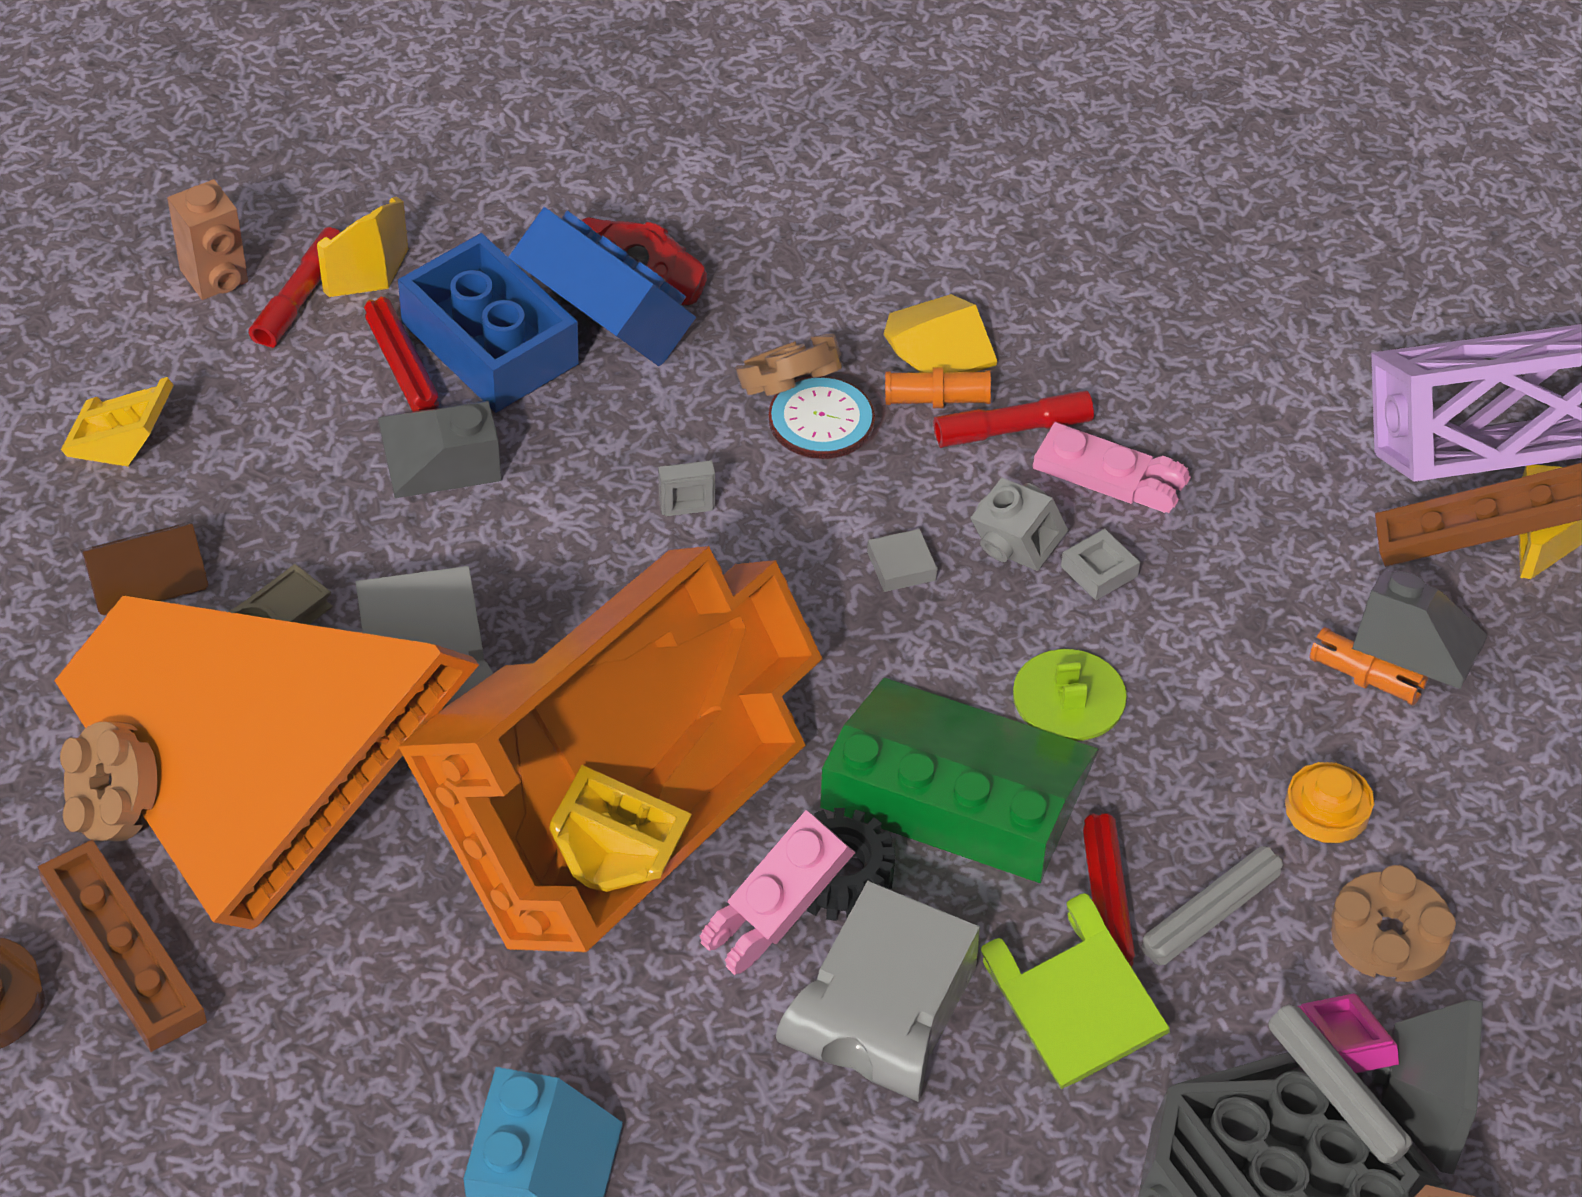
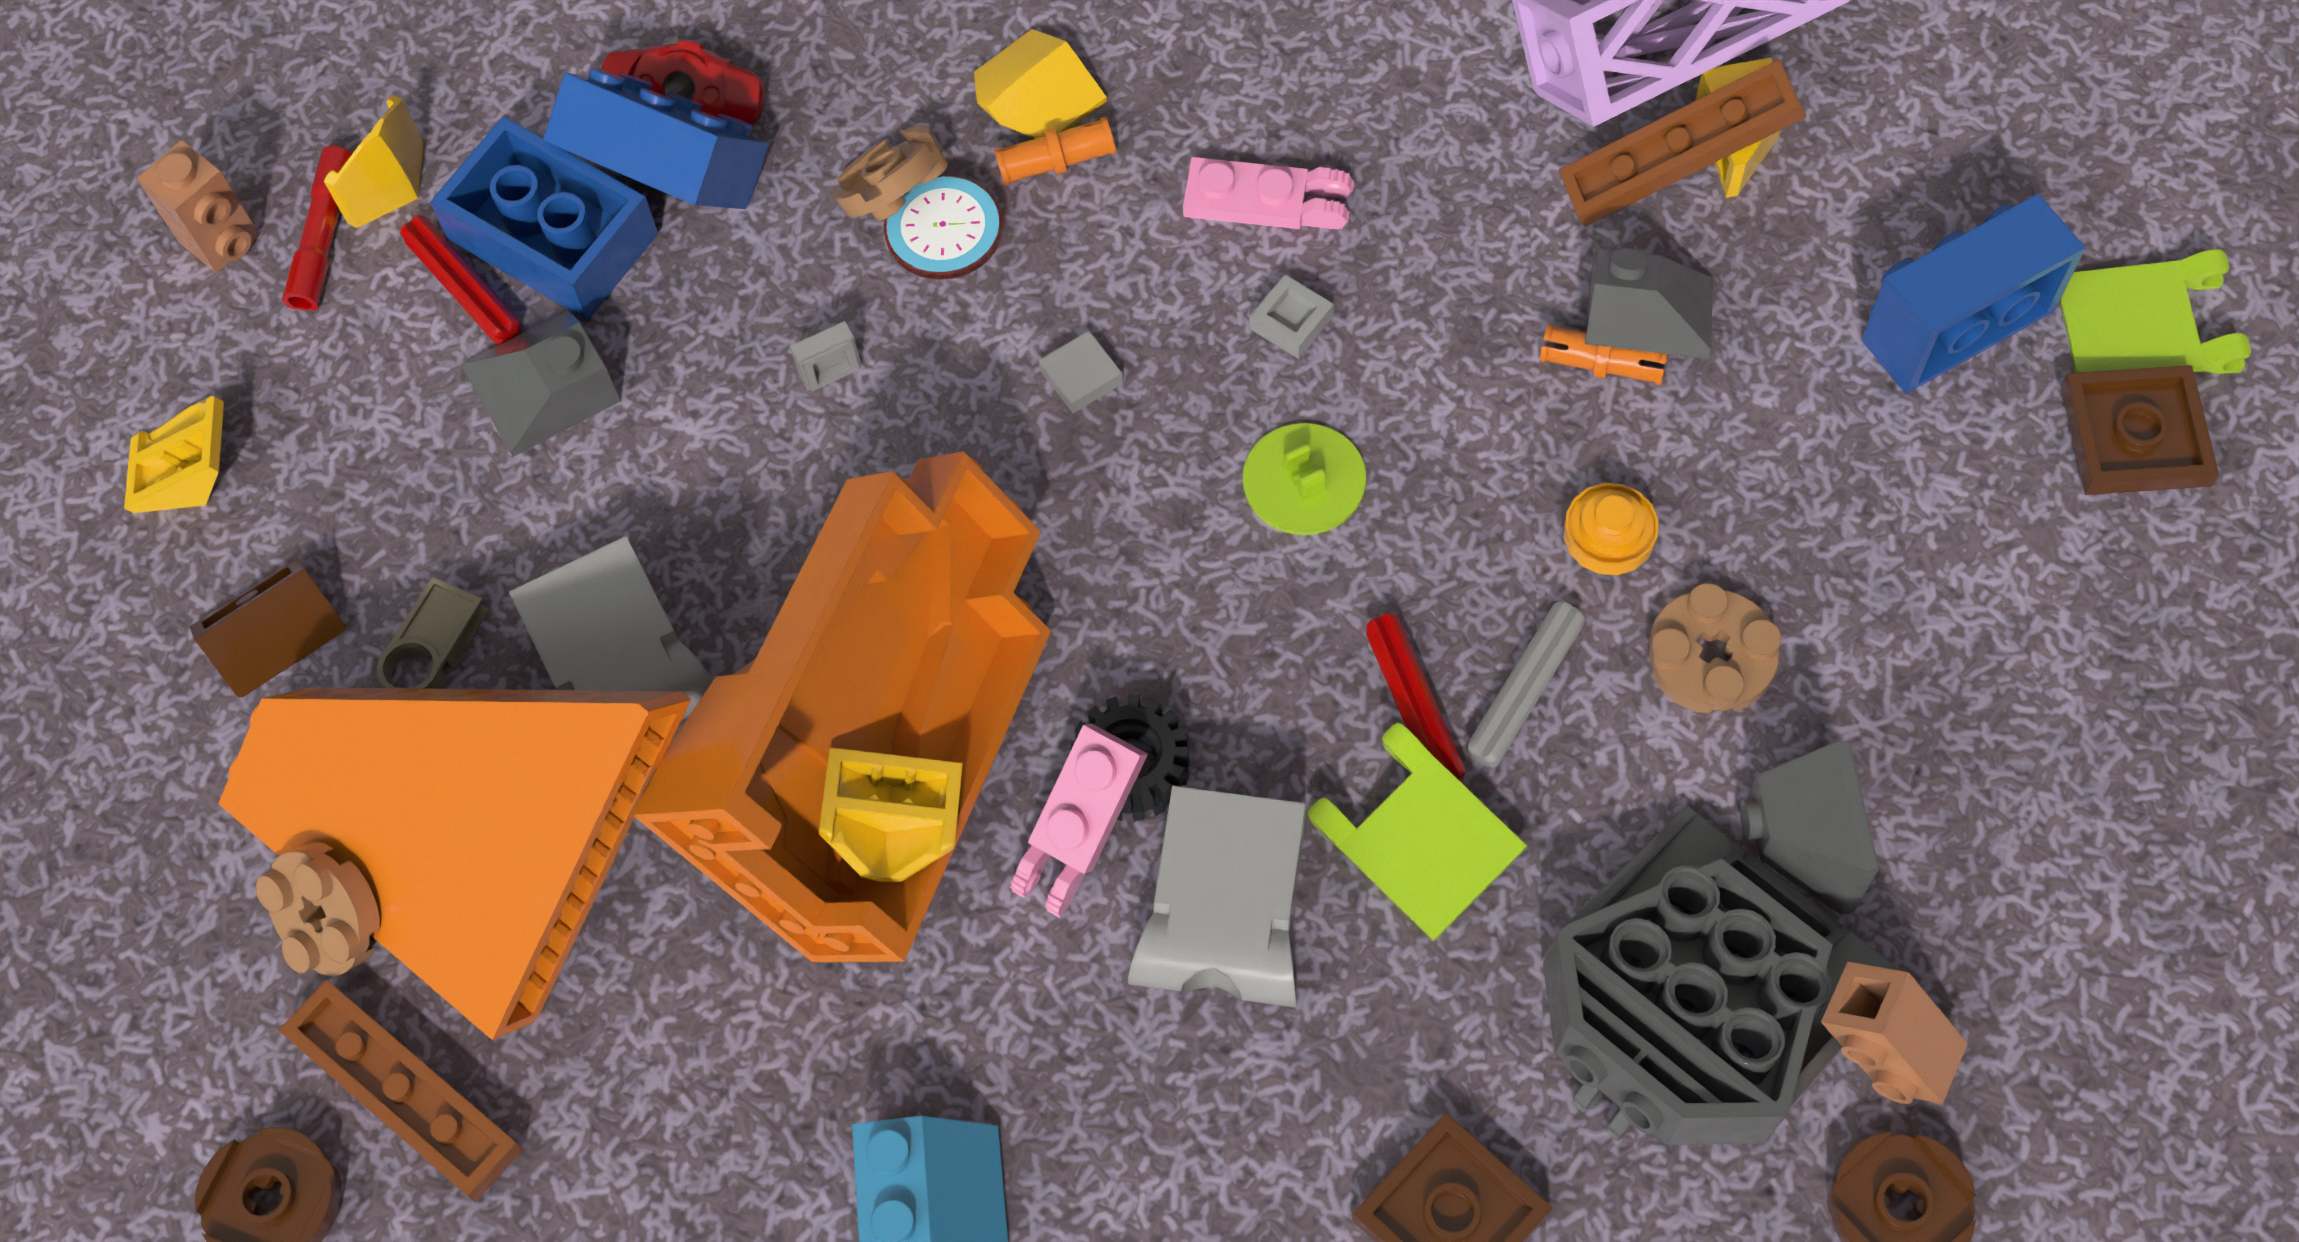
camera: 10 degrees left, 15 degrees up
(956, 777) = (1219, 614): green slope -> none
(982, 424) = (1115, 181): red piece -> none
(1019, 524) = (1193, 297): light grey brick -> none
(1340, 1084) = (1726, 872): light grey axle -> none
(1353, 1032) = (1711, 800): dark pink tile -> none

